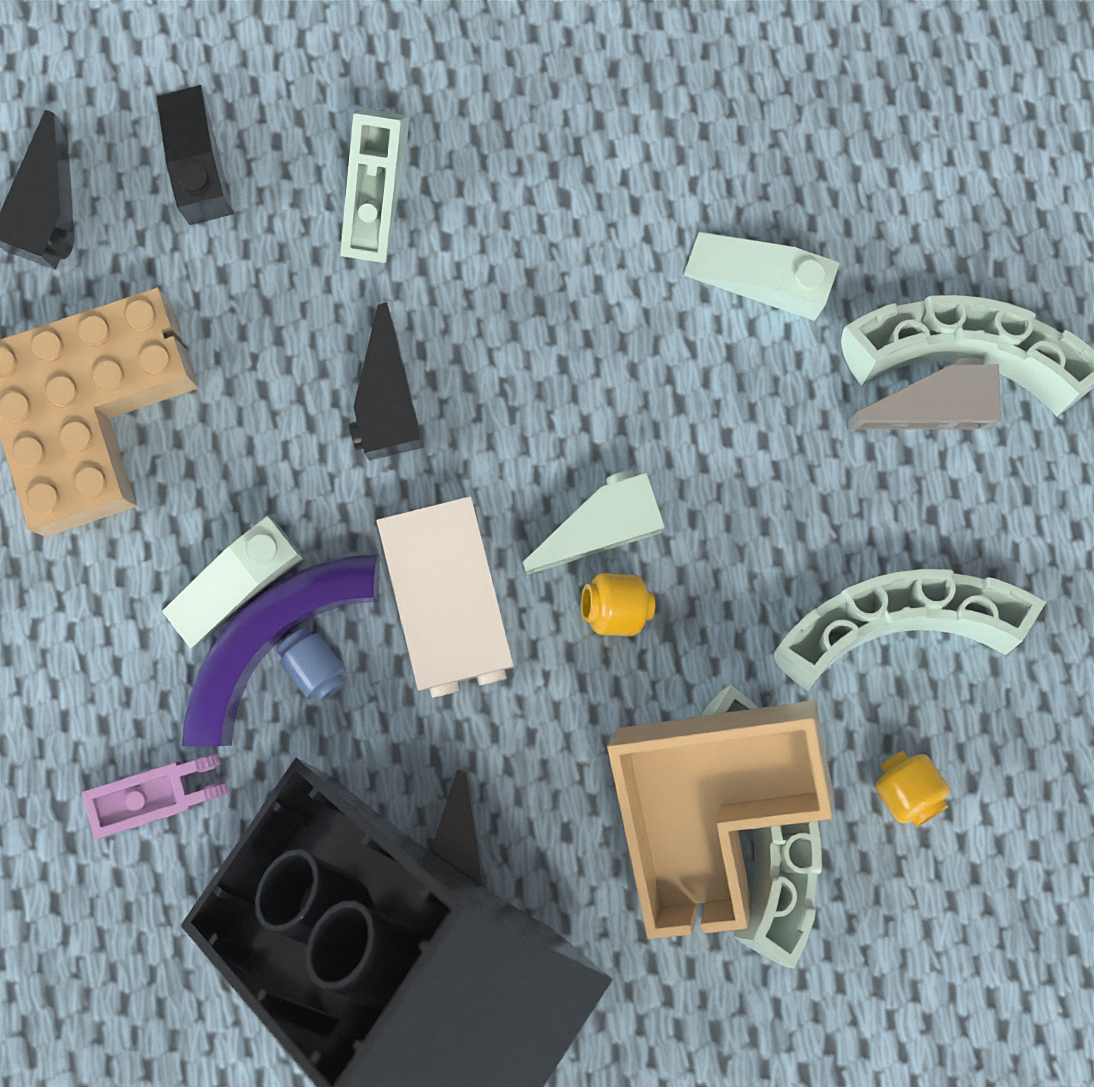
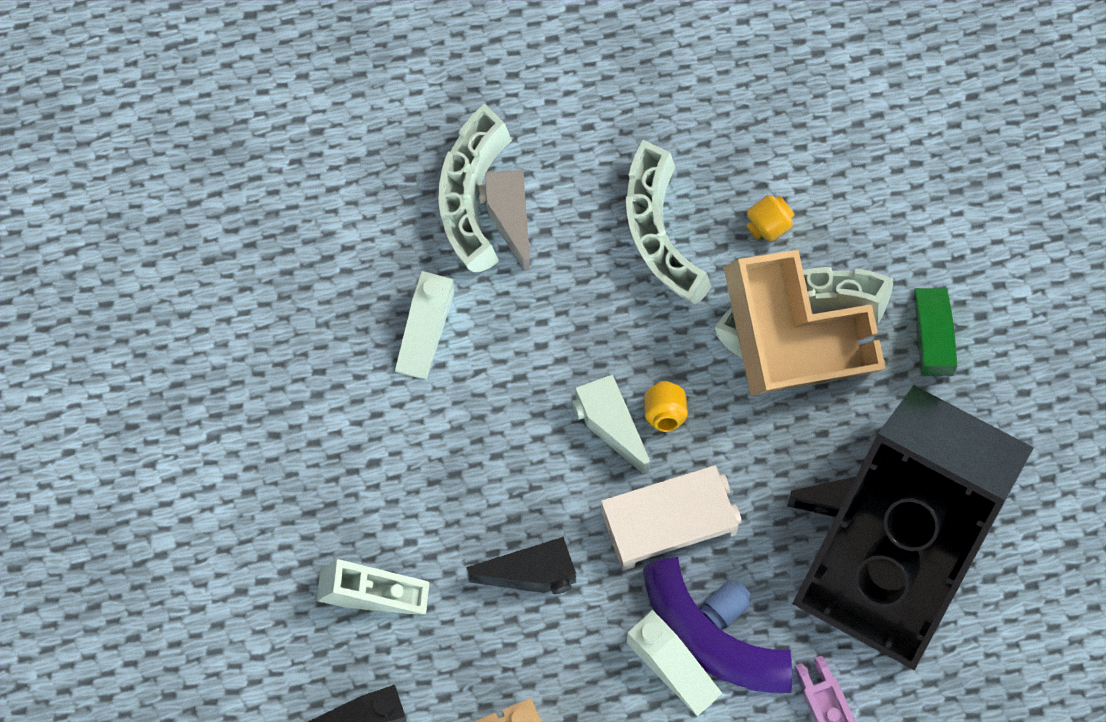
camera: 90 degrees left, 15 degrees down
(715, 1025) = (935, 332): none -> green slope

